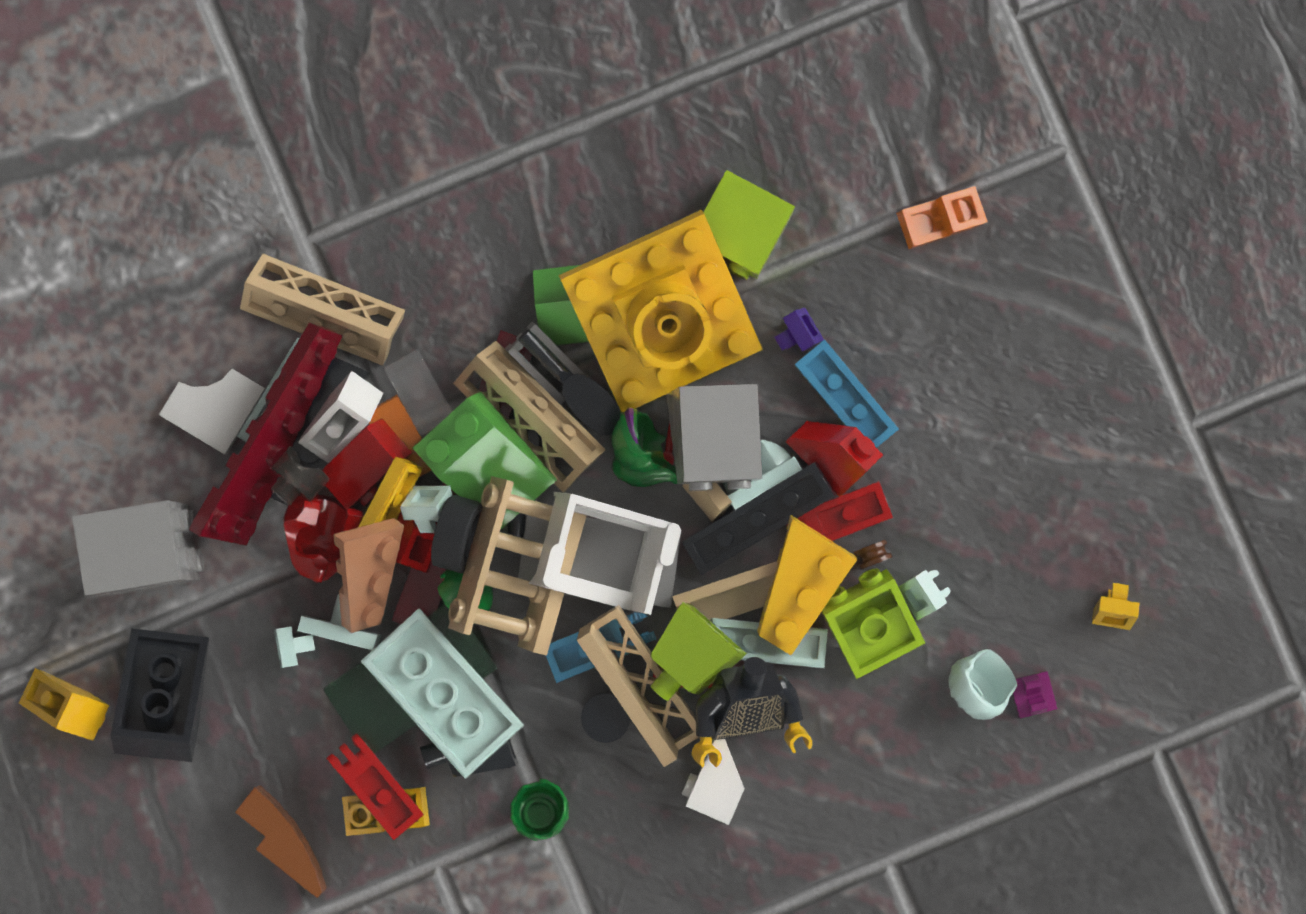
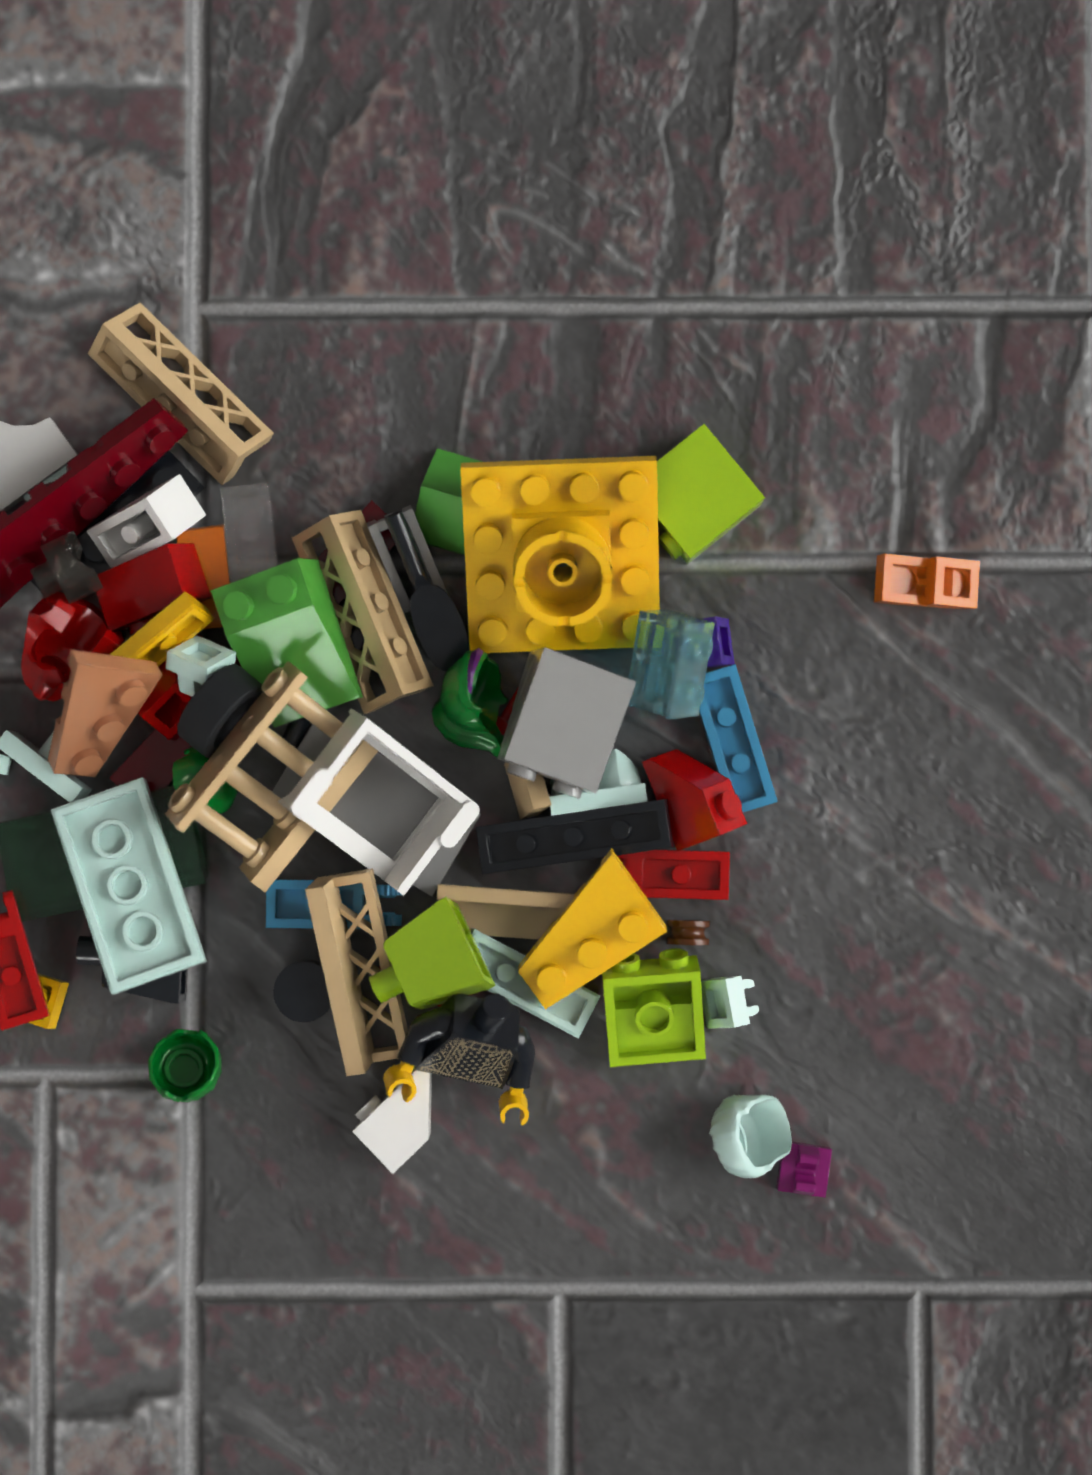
camera: 15 degrees right, 0 degrees up
(776, 358) = (670, 663): none -> clear light blue hinge
(1115, 609) = (939, 1111): yellow tile -> none

